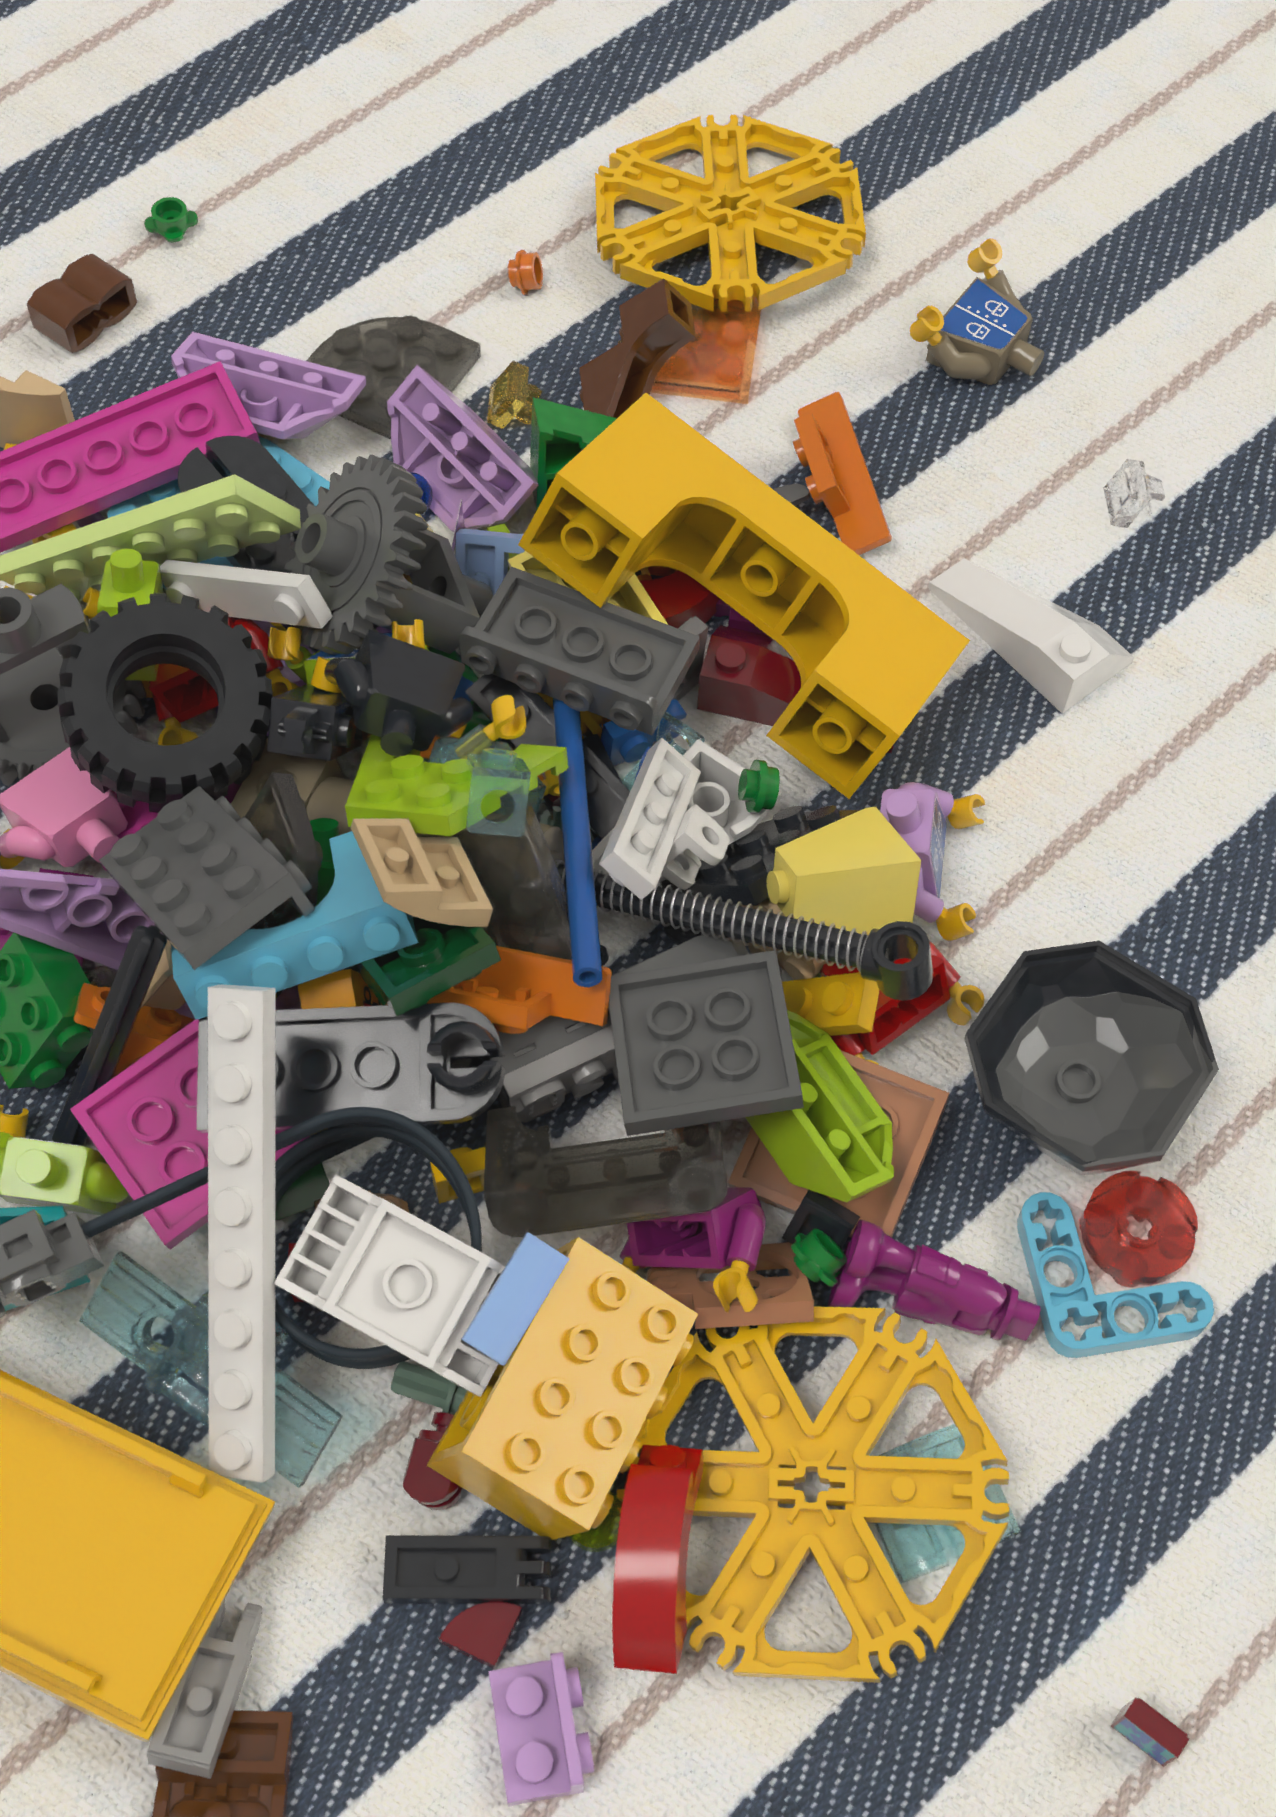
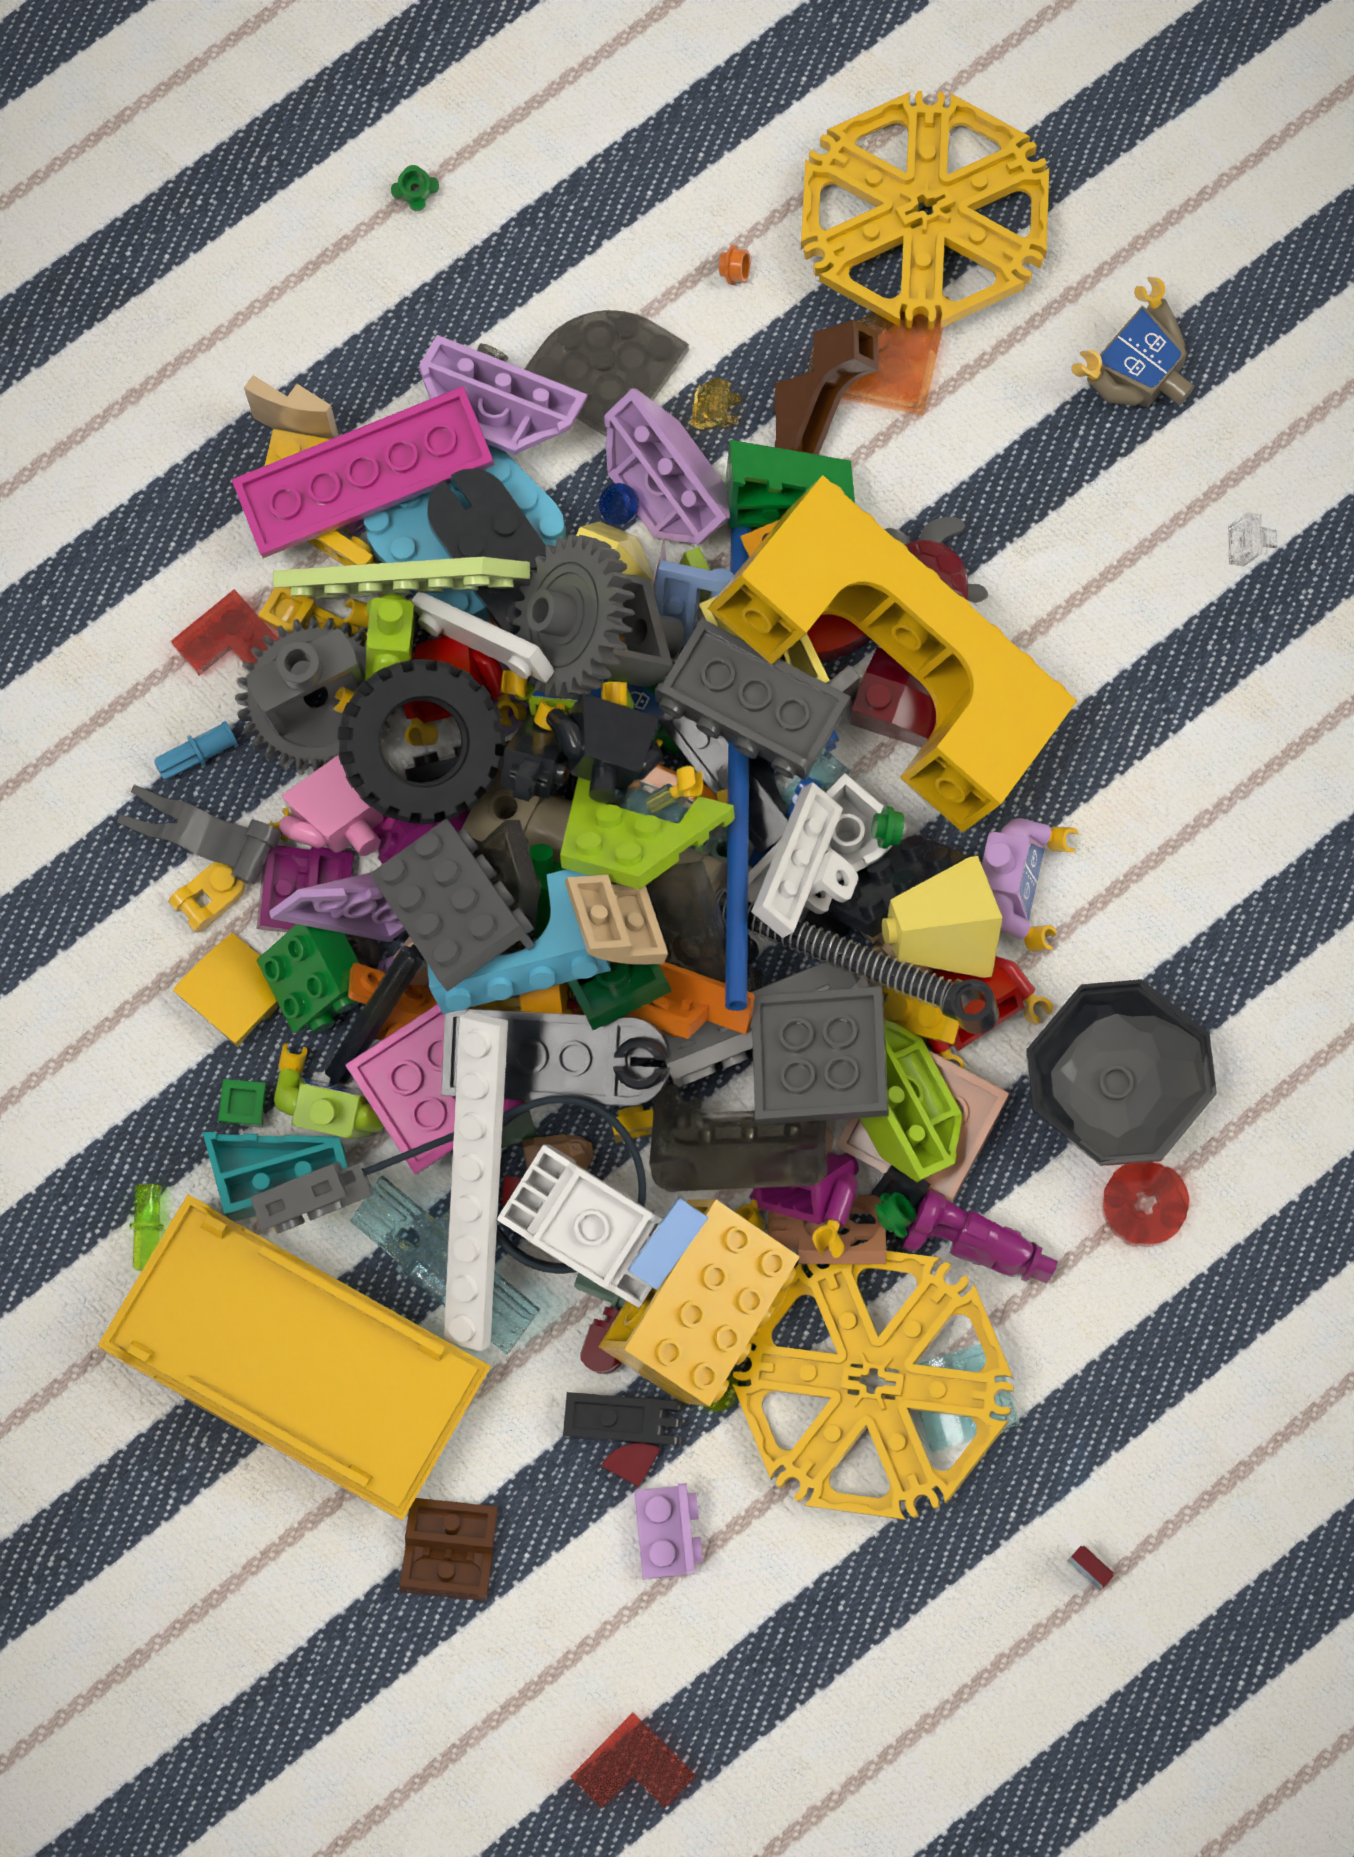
camera: 10 degrees right, 15 degrees up
(81, 303) = (336, 281): reddish brown brick -> none
(204, 1702) = (439, 1496): light grey hinge -> none
(495, 771) = (677, 839): clear light blue bracket -> none
(652, 1559) = (753, 1423): red arch -> none
(840, 473) = (993, 502): orange bracket -> none
(1042, 641) = (1147, 673): white wedge -> none
(1081, 1302) = (1091, 1253): medium azure beam -> none

